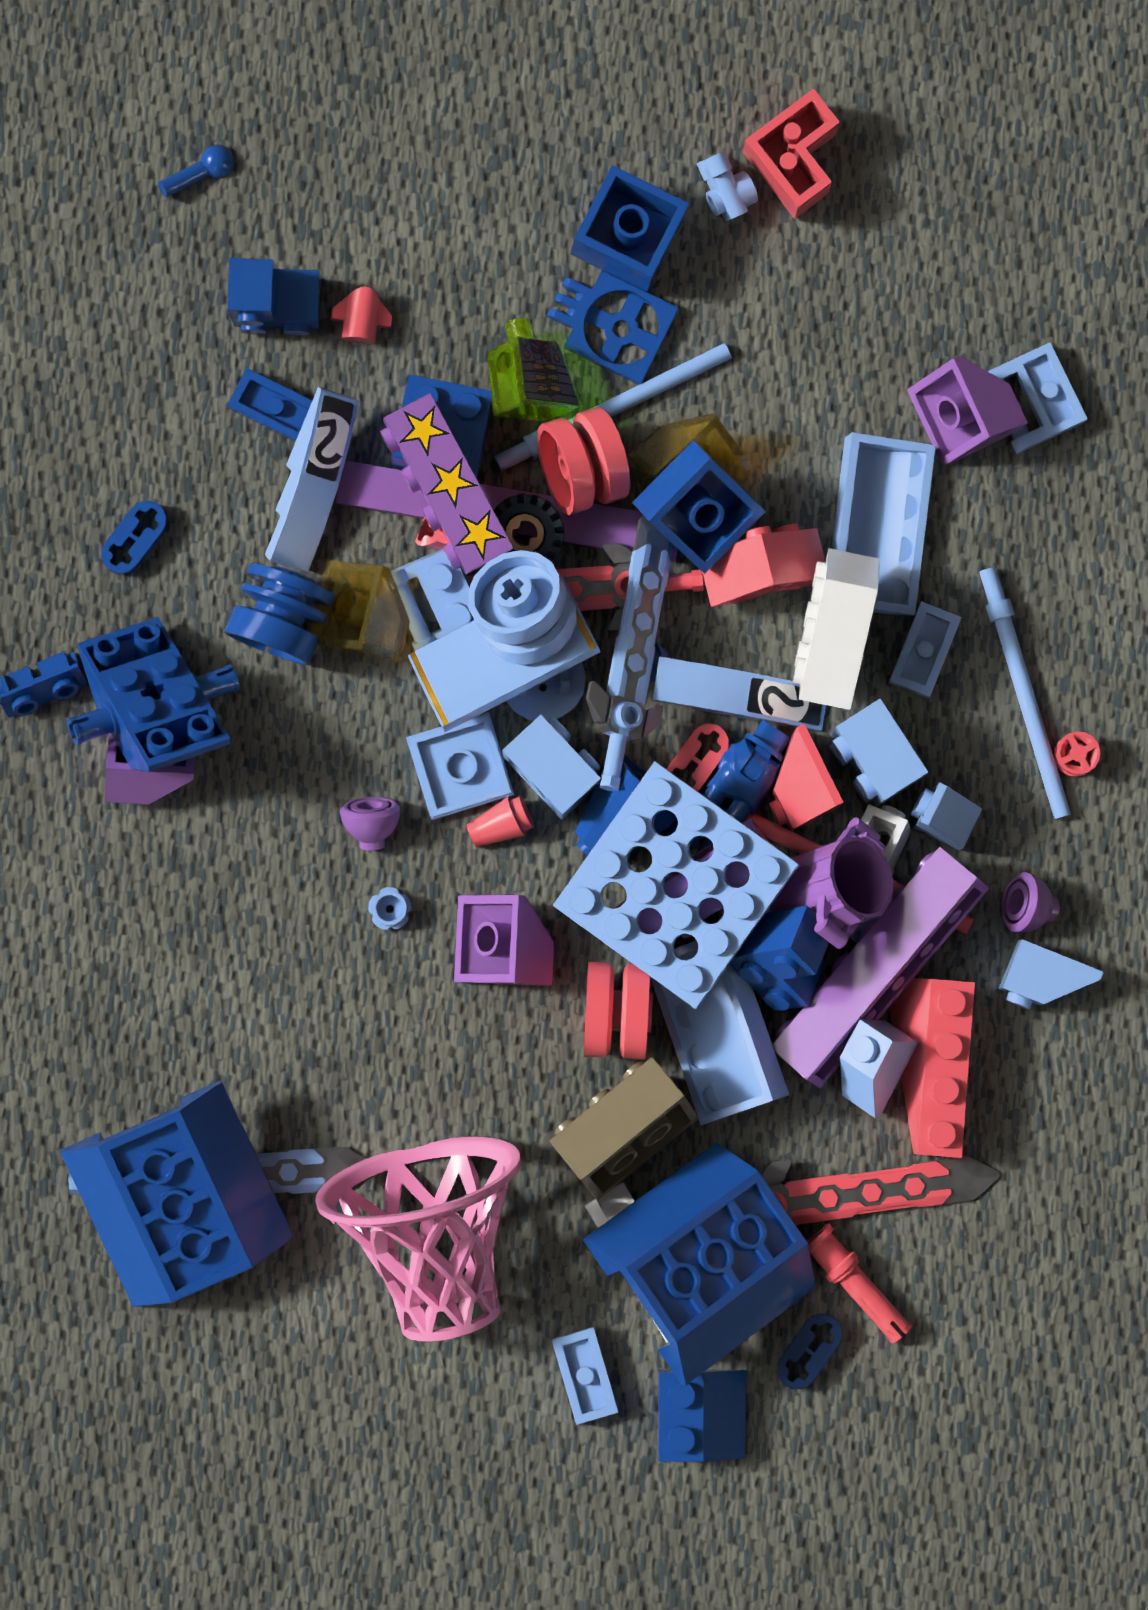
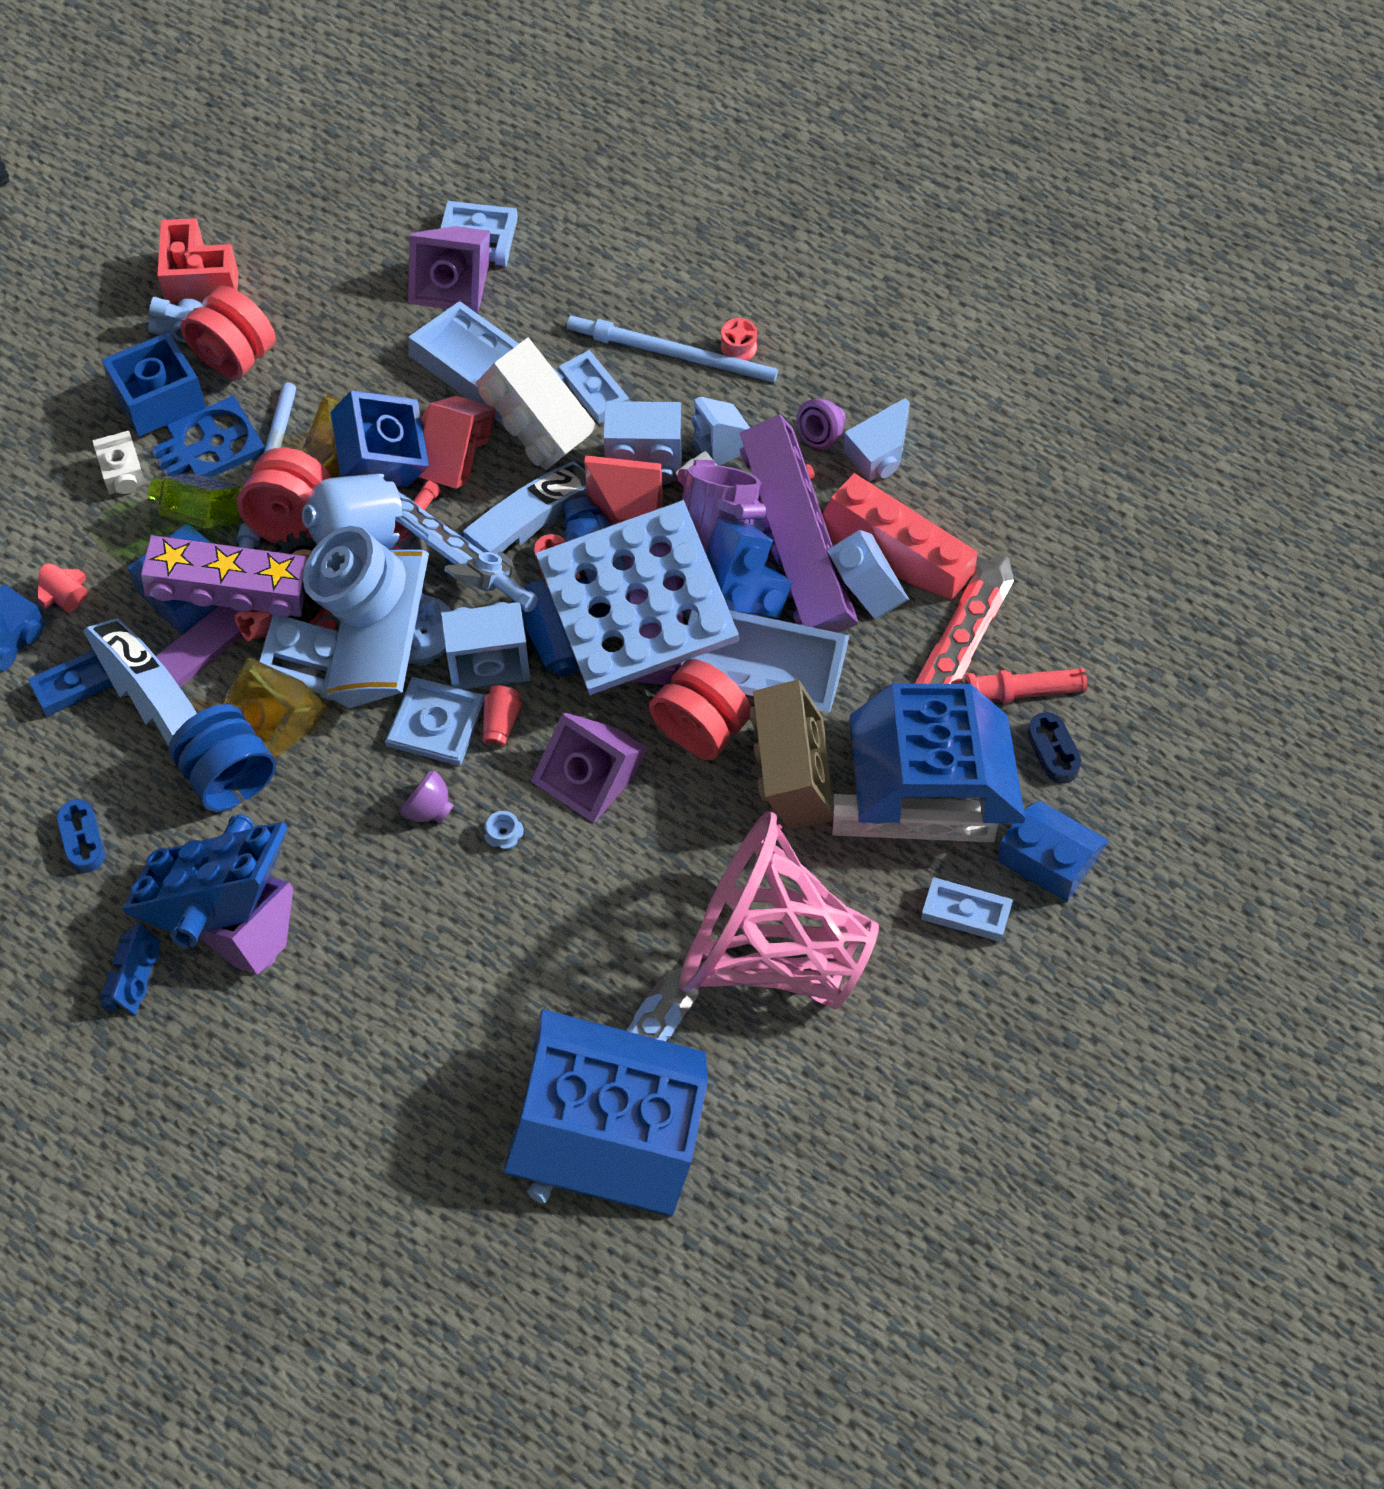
camera: 50 degrees left, 25 degrees down
(521, 281) = (119, 463): none -> white brick
(593, 550) = (354, 501): none -> light blue cylinder
(731, 257) = (228, 332): none -> coral wheel

